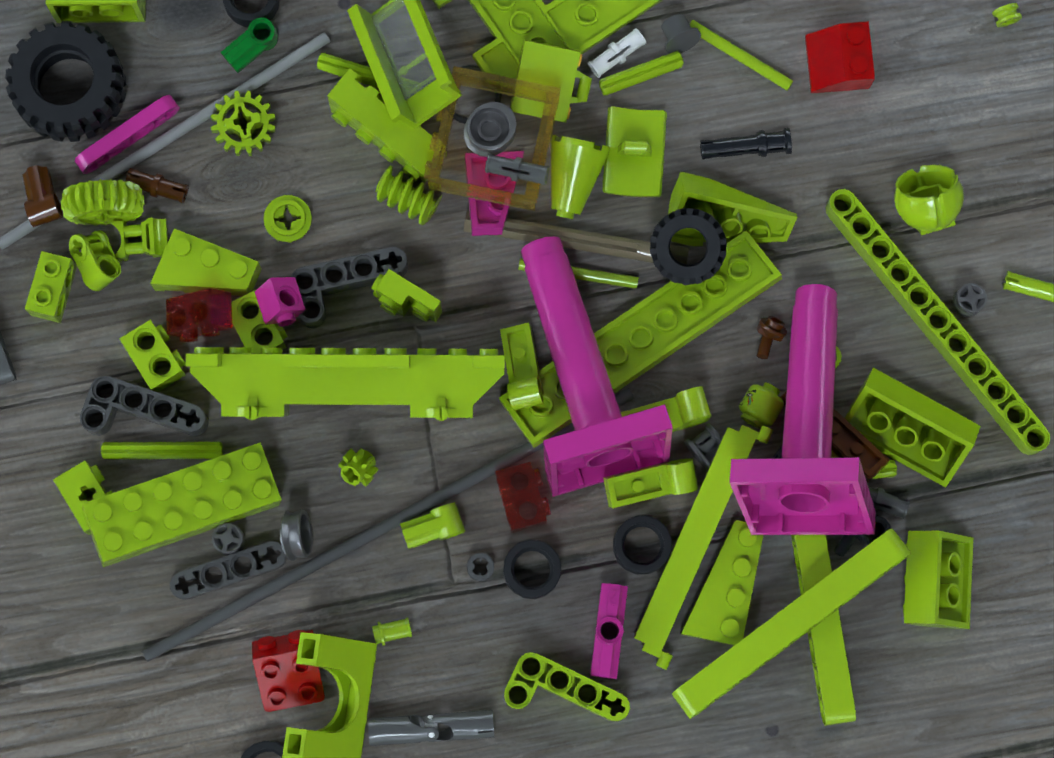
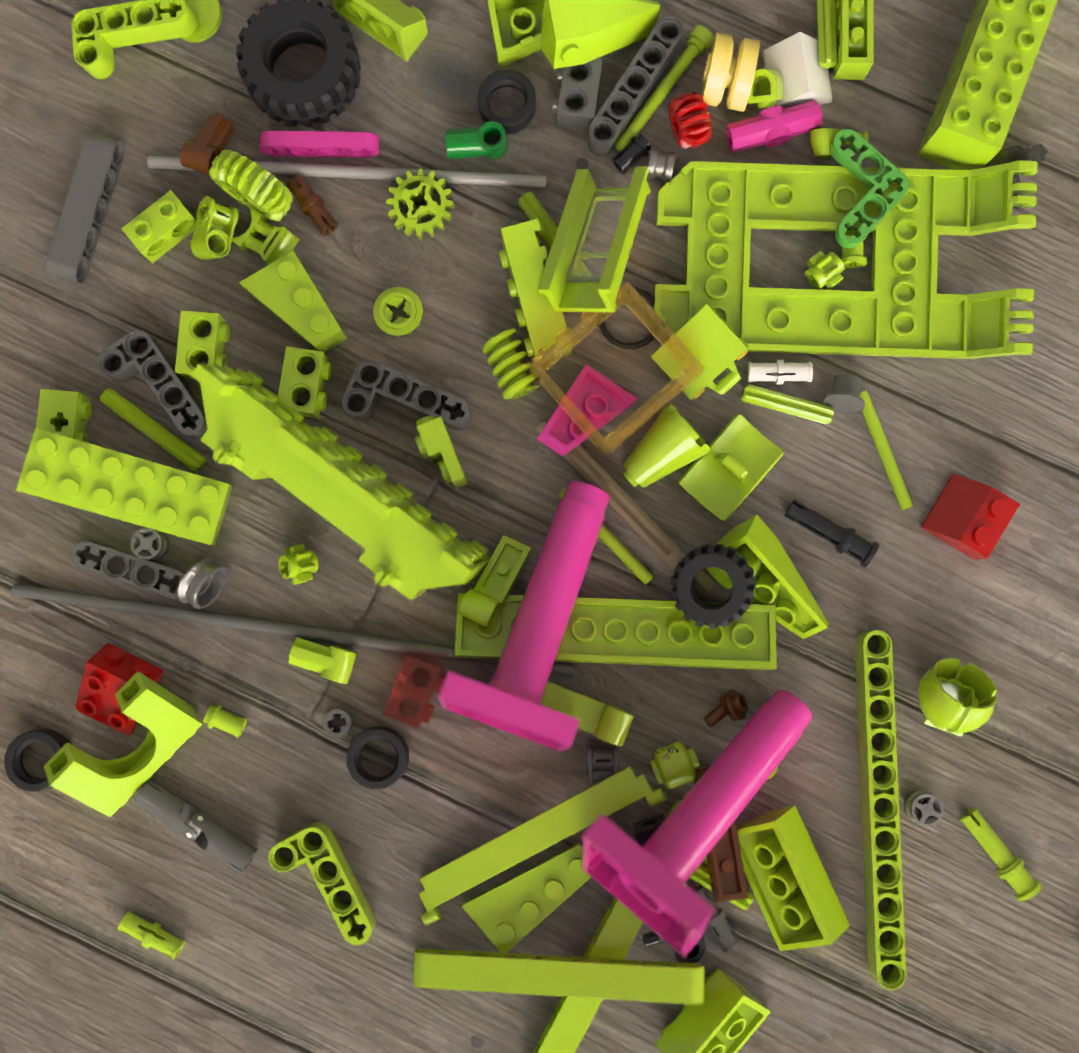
camera: 45 degrees right, 5 degrees up
(199, 314) = (260, 339): clear red brick -> none
(280, 301) = (345, 373): dark pink brick -> none
(490, 129) = (616, 359): flat silver piece -> none
(517, 169) = (613, 411): dark grey pin -> none
(610, 610) = (387, 872): dark pink piece -> none
(651, 482) = (533, 760): lime plate -> none
(663, 535) = (471, 827): black tyre -> none

